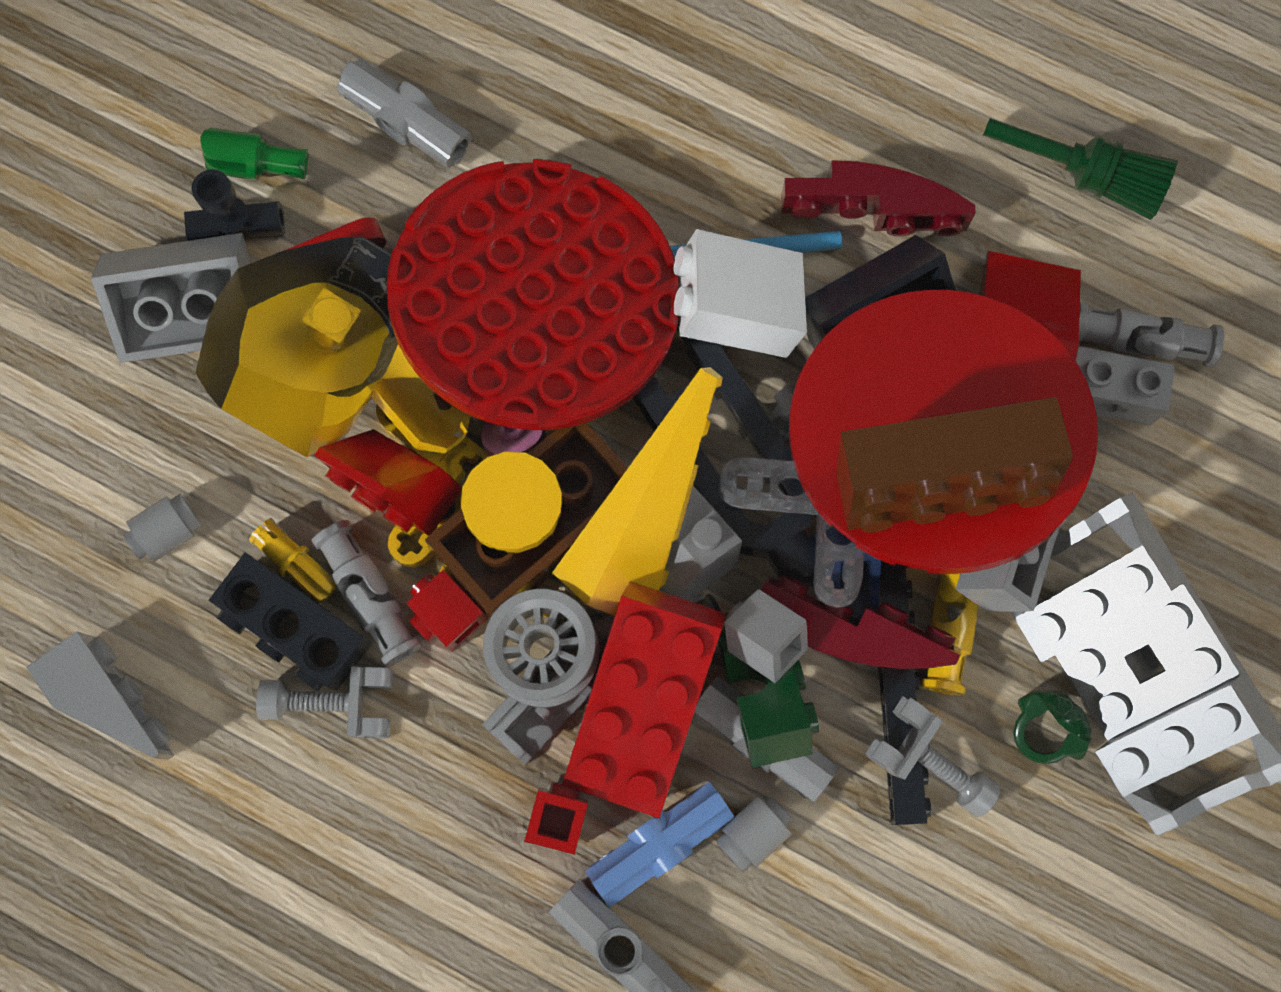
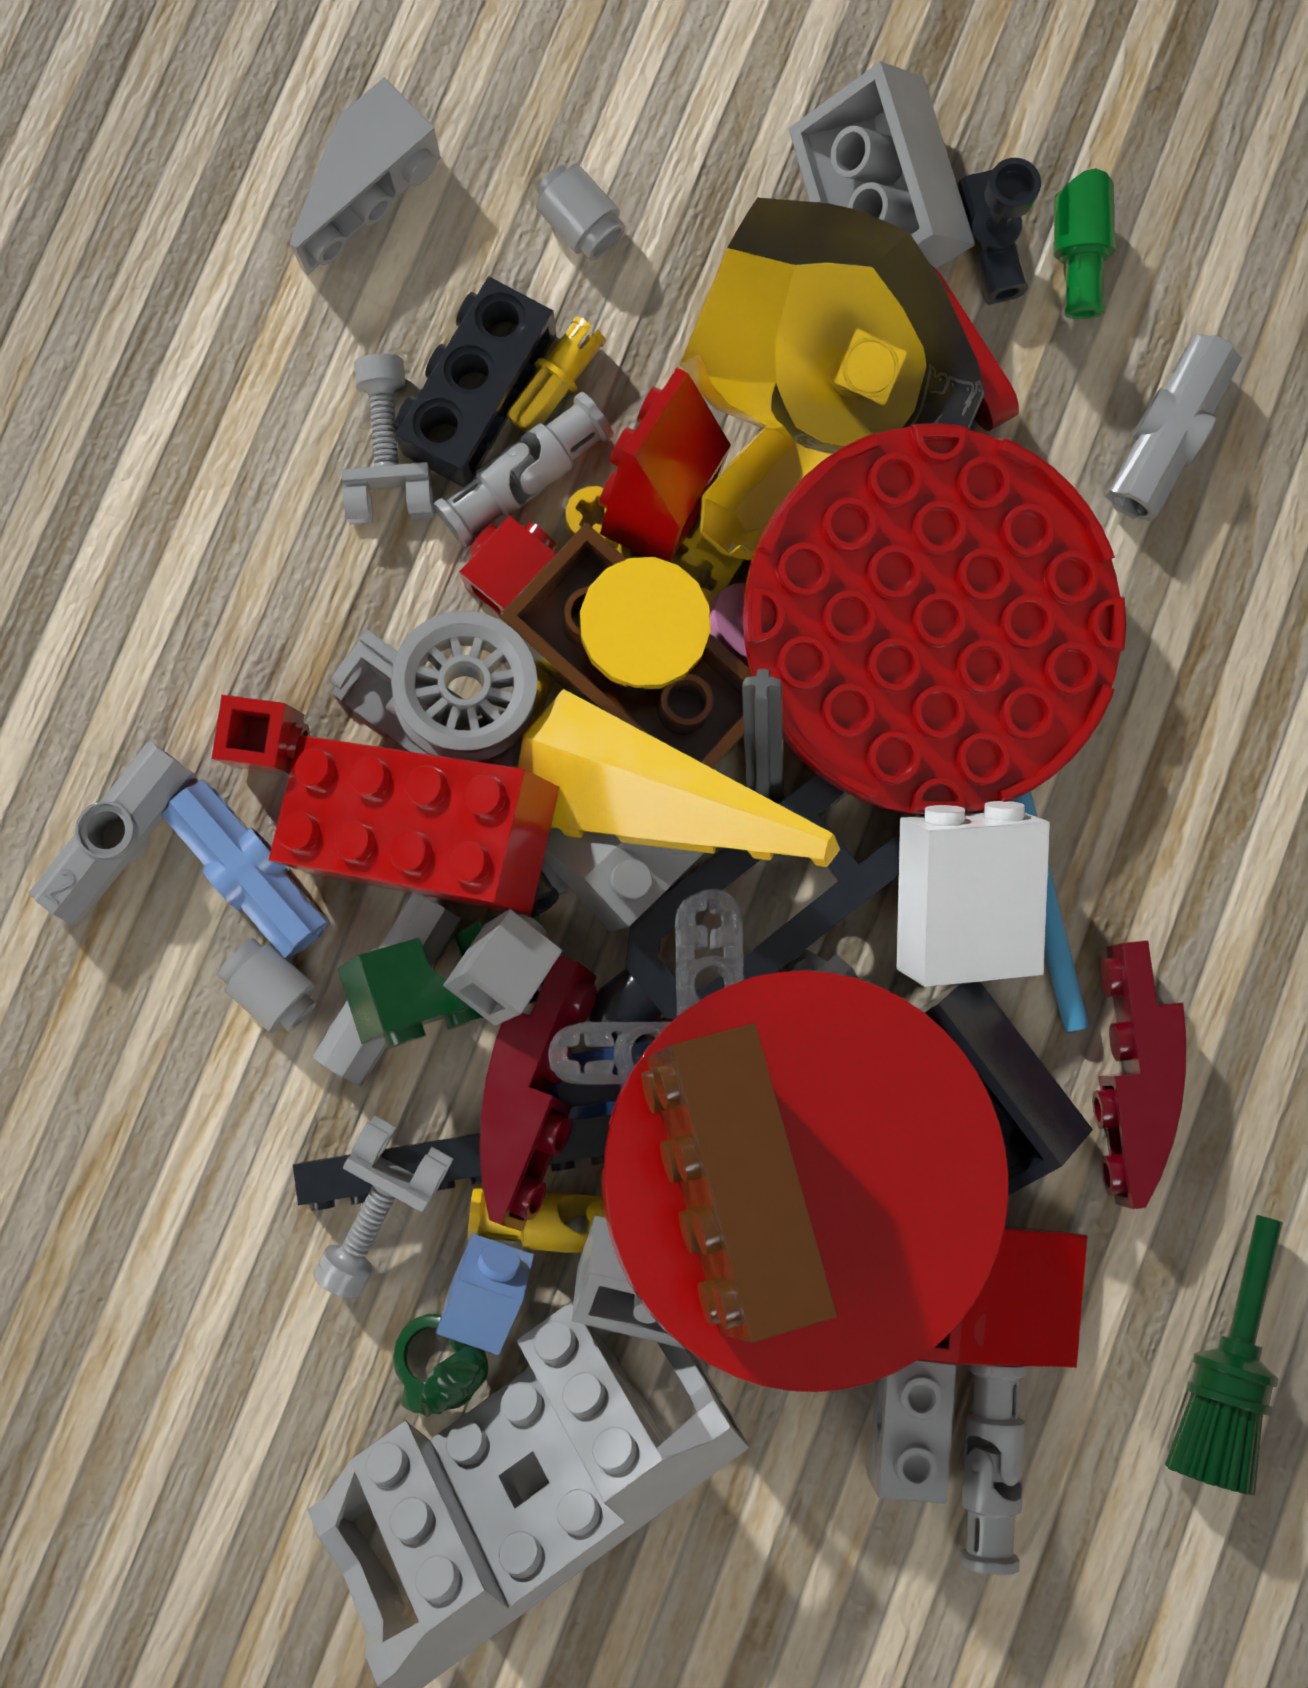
camera: 80 degrees right, 5 degrees up
(607, 425) = (763, 734): none -> dark grey axle
(1004, 683) = (485, 1294): none -> medium blue brick

